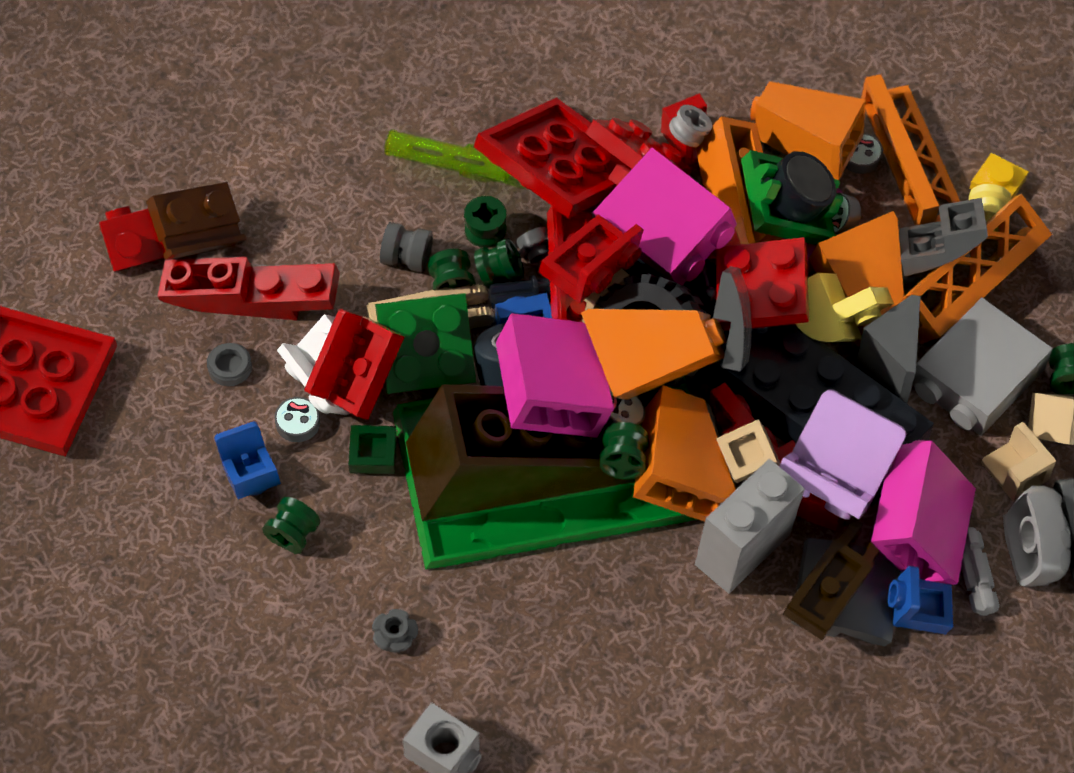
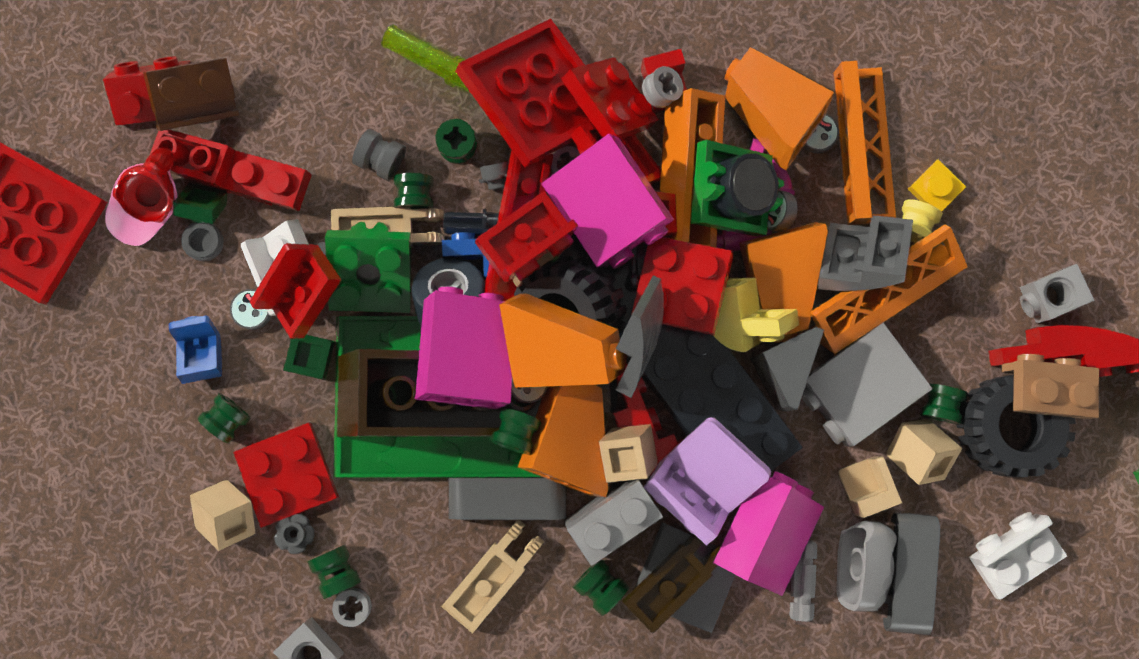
camera: 10 degrees right, 25 degrees up
(162, 325) = (142, 199): none -> red hair
(222, 326) = (200, 203): none -> dark green plate
(310, 623) = (222, 514): none -> tan panel
(371, 574) = (286, 474): none -> red plate
(449, 654) = (329, 563): none -> dark green wheel
(464, 690) = (343, 598): none -> light grey bush
(499, 263) = (457, 192): dark green wheel -> none
(626, 544) = (506, 499): none -> dark grey beam
(628, 635) = (489, 580): none -> tan hinge
(754, 614) = (594, 580): none -> dark green wheel
(920, 603) = (745, 607): blue bracket -> none

